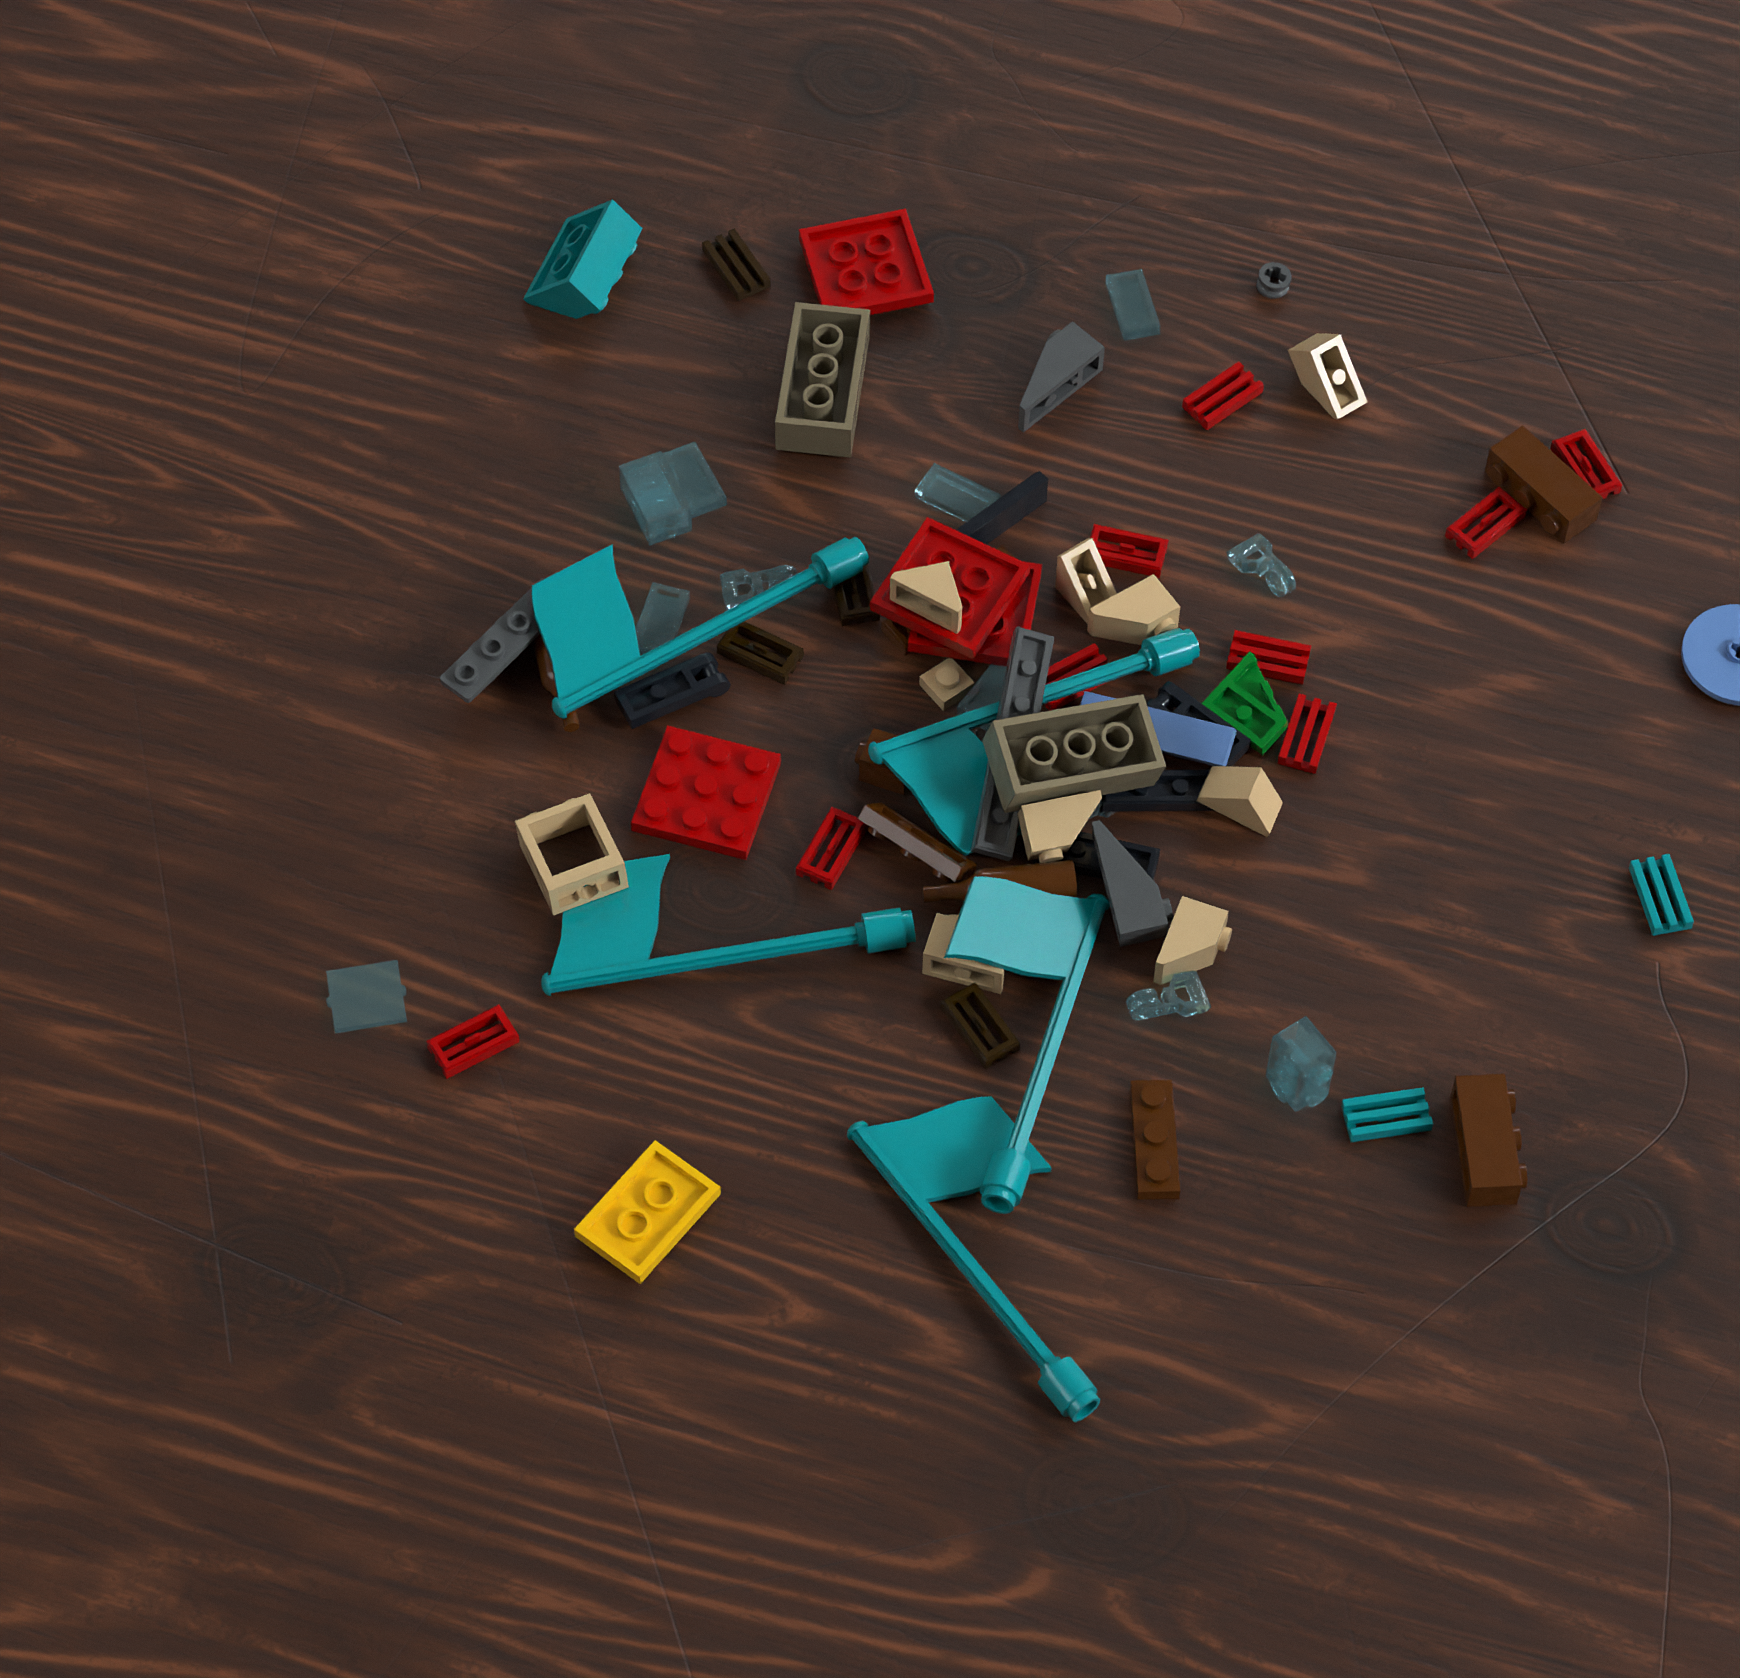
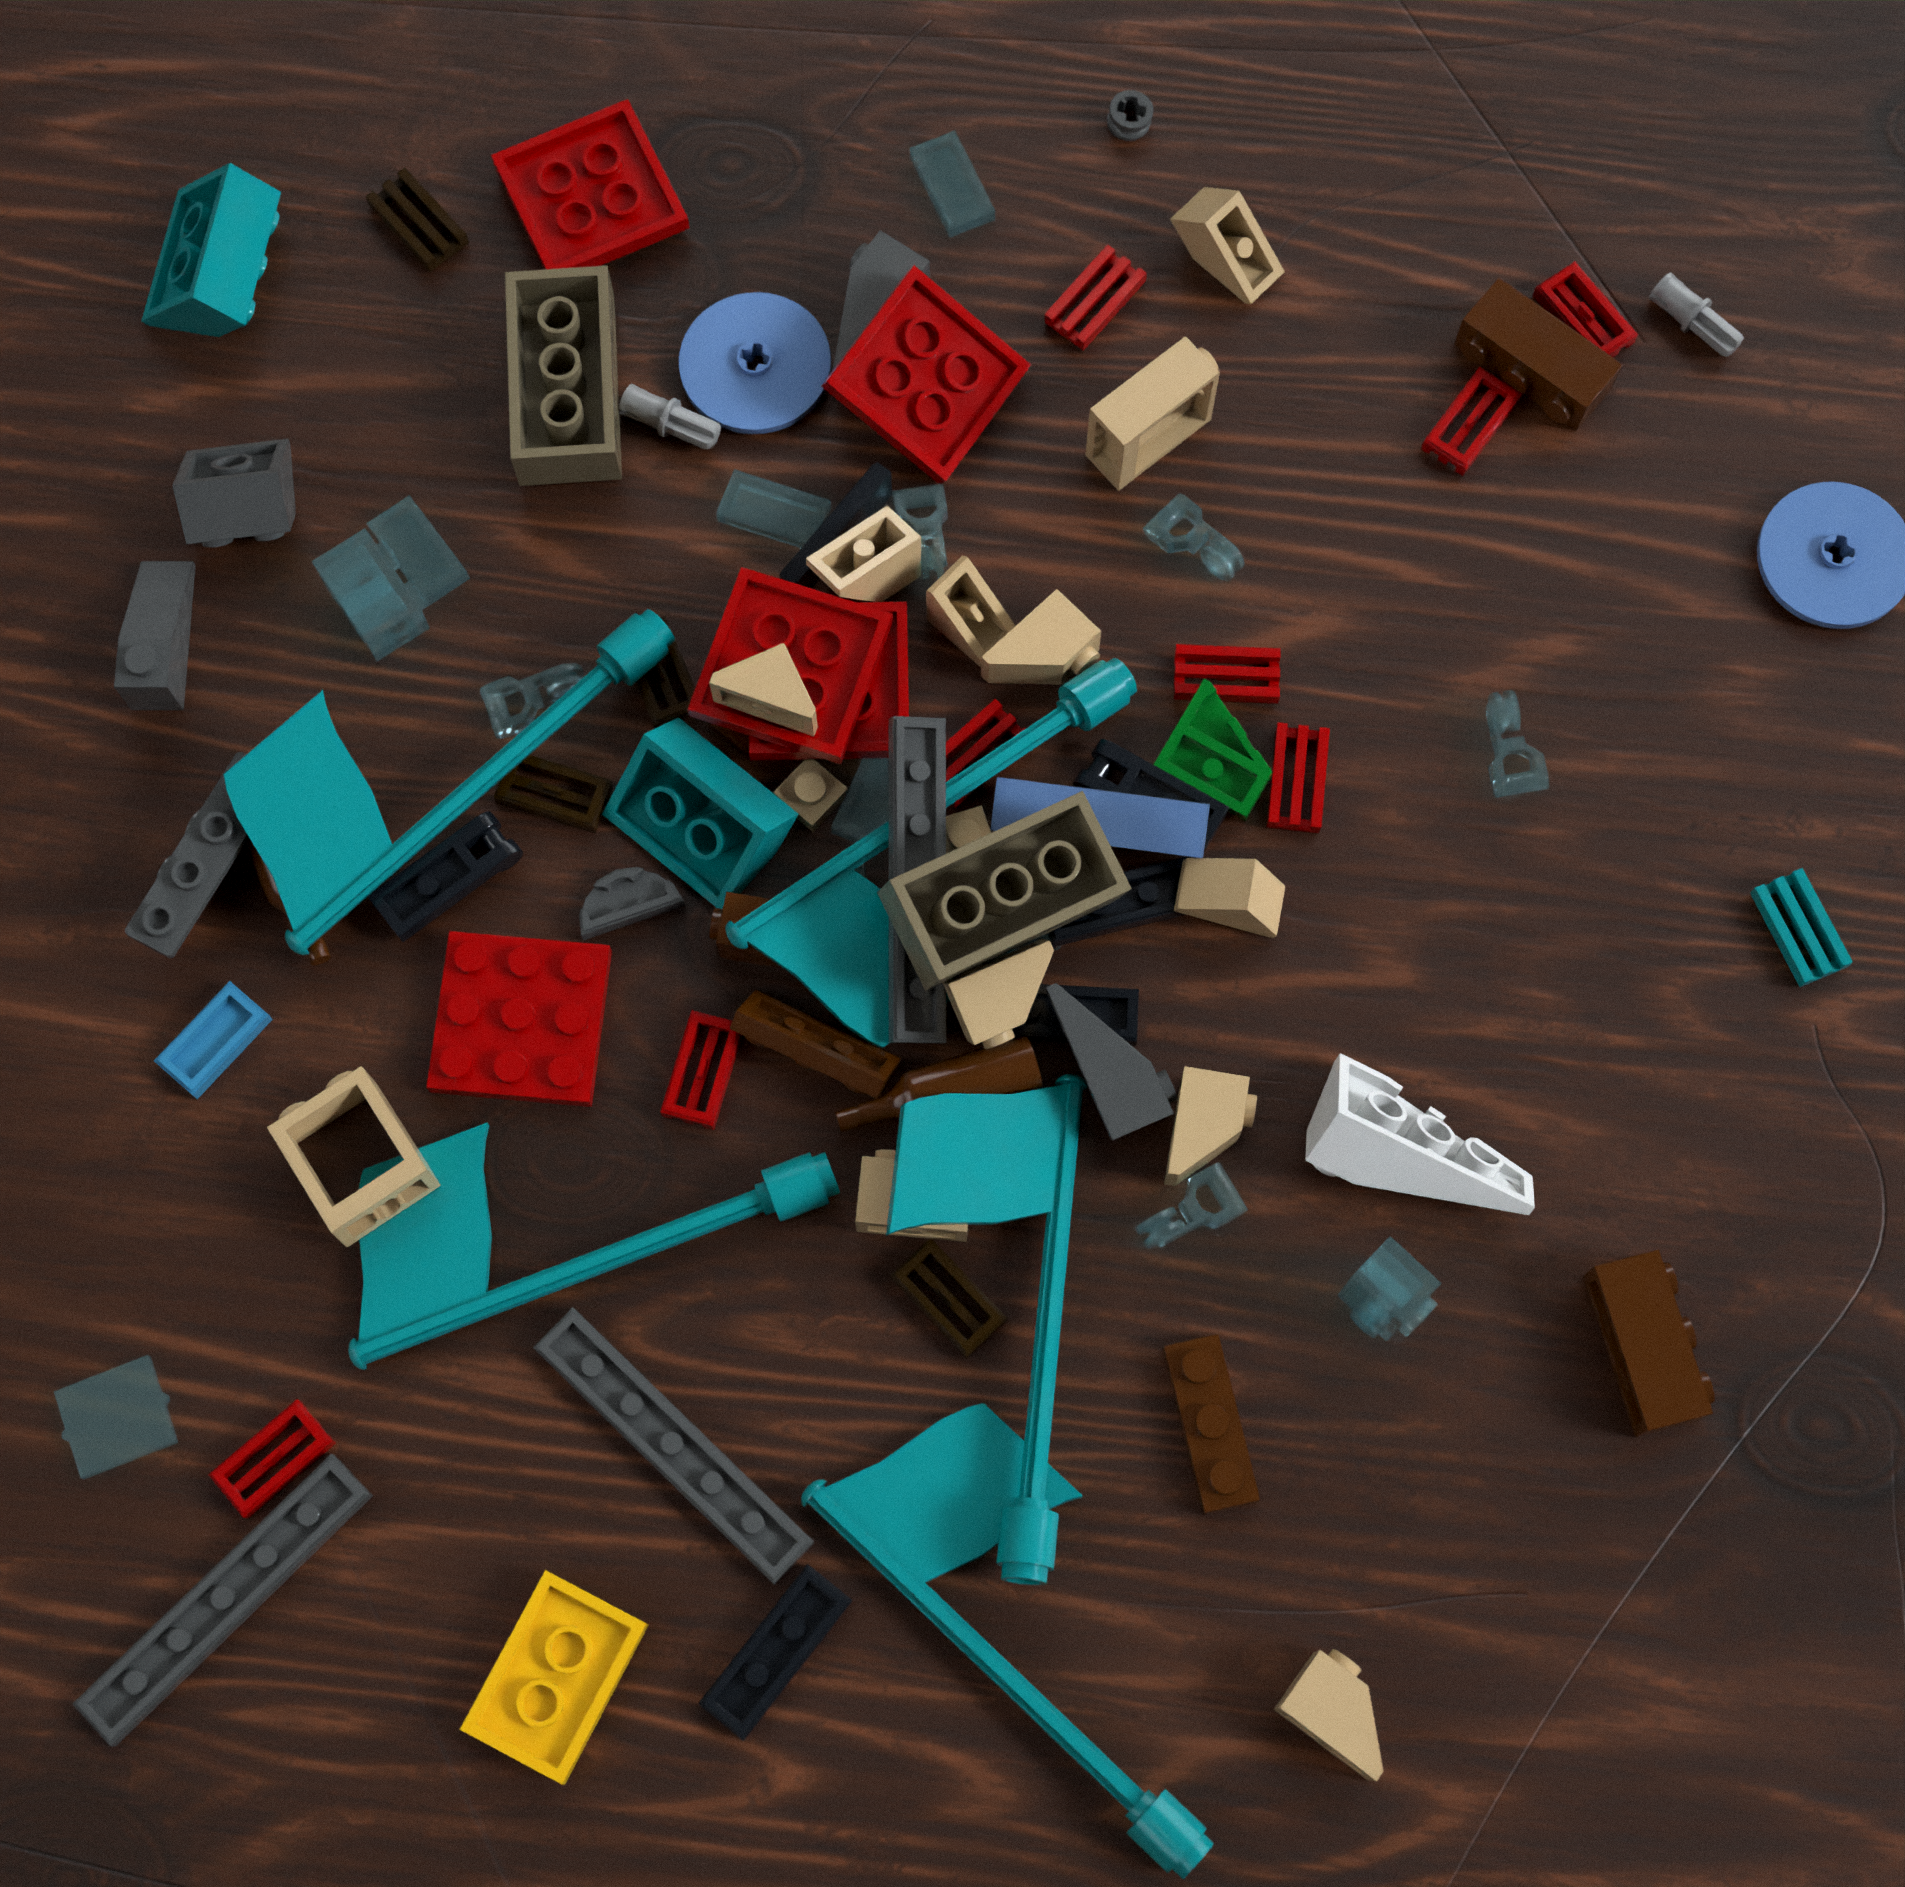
camera: 10 degrees left, 15 degrees up
(420, 1124) = (222, 1600): none -> dark grey tile
(483, 768) = (213, 1040): none -> dark azure tile
(494, 504) = (156, 637): none -> dark grey slope
(571, 419) = (236, 493): none -> dark grey slope
(661, 616) = (411, 770): clear light blue tile -> none
(762, 1084) = (674, 1446): none -> dark grey tile
(798, 729) = (625, 899): none -> dark grey tile
(808, 1228) = (775, 1652): none -> black tile
(862, 677) = (698, 811): none -> teal slope
(893, 421) = (669, 417): none -> light grey axle
(977, 418) = (776, 392): none -> medium blue piece
(1023, 531) = (870, 558): none -> tan slope
(1065, 524) = (930, 527): none -> clear light blue piece
(1087, 421) = (926, 375): none -> red plate
(1126, 556) = (1014, 531): red tile -> none
(1203, 1333) = (1335, 1711): none -> tan slope
(1247, 472) = (1152, 412): none -> tan window
(1312, 971) = (1388, 1144): none -> white wedge
(1379, 1111) = (1552, 1309): teal tile -> none
(1469, 715) = (1506, 712): none -> clear light blue piece
(1668, 478) = (1695, 315): none -> light grey axle

